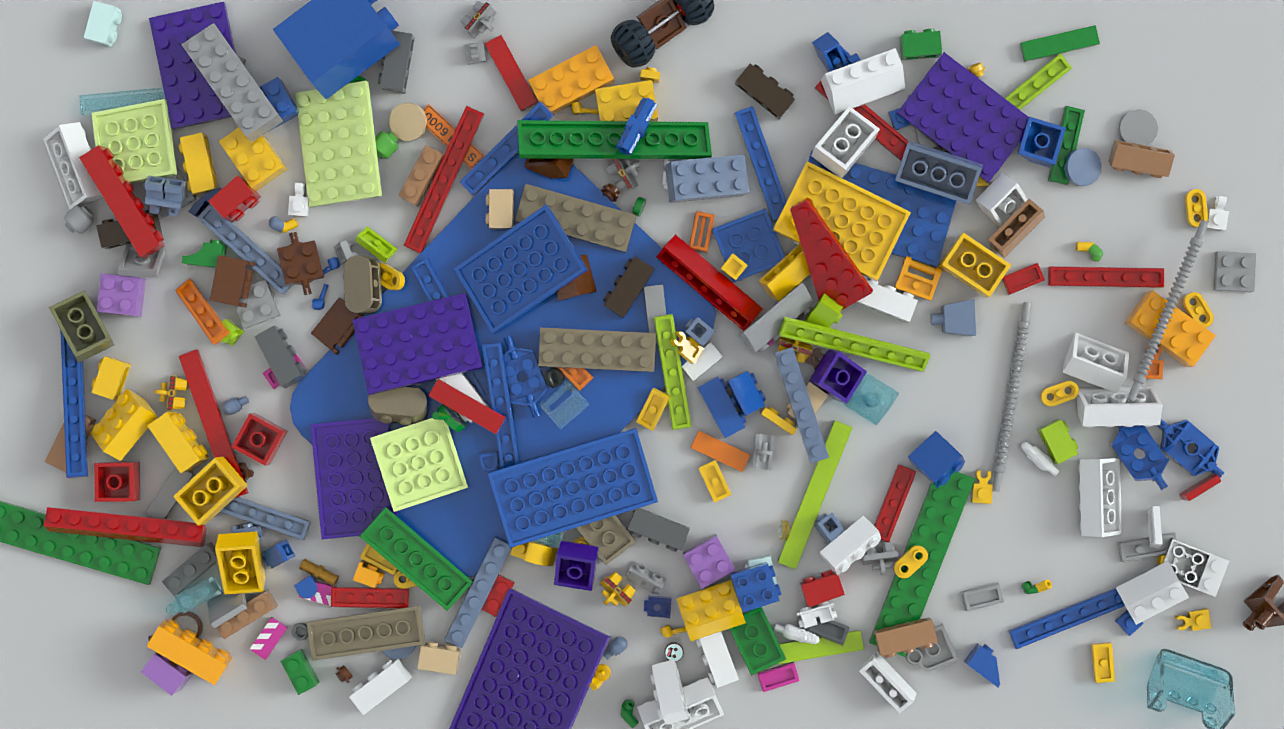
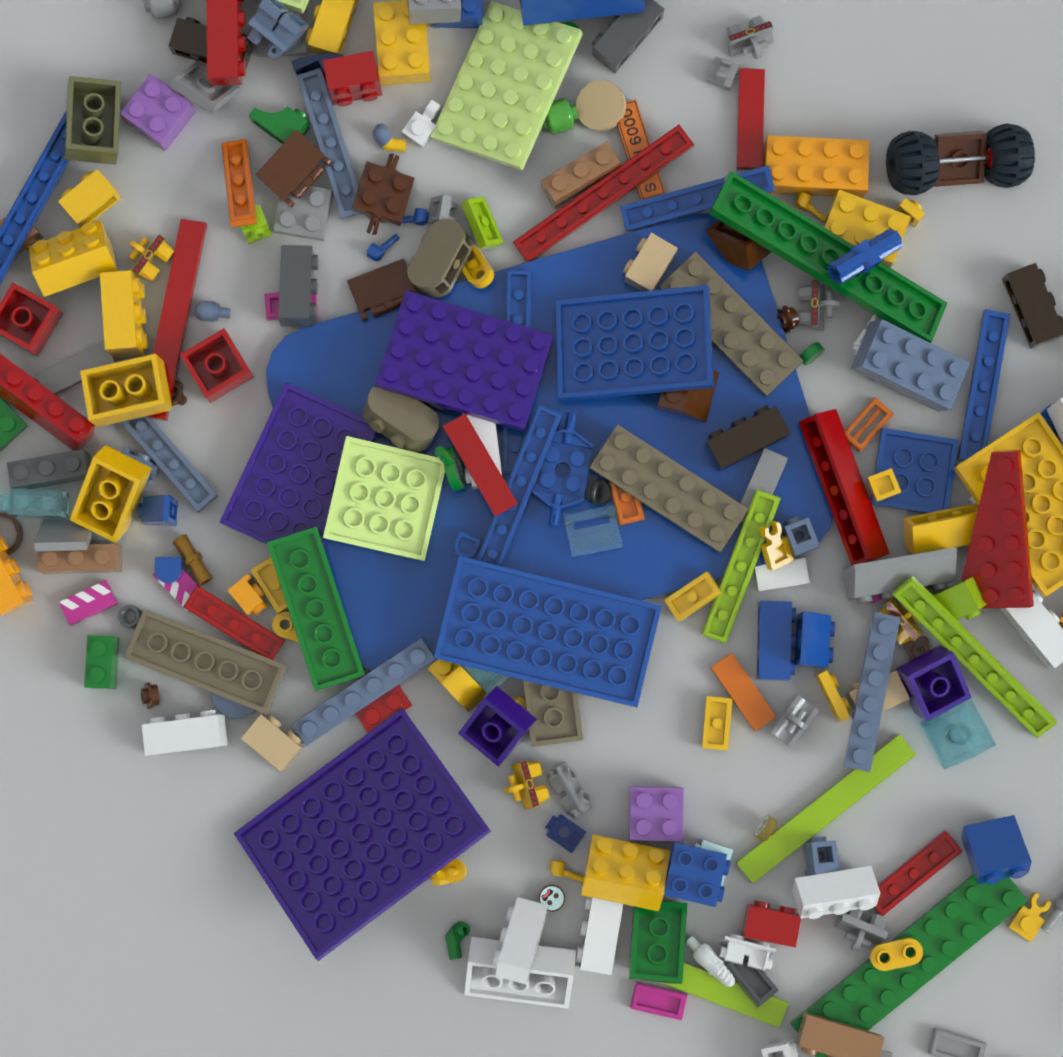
camera: 30 degrees right, 5 degrees down
(616, 647) = (487, 851): sand blue cylinder -> none
(658, 529) = (618, 741): dark grey brick -> none

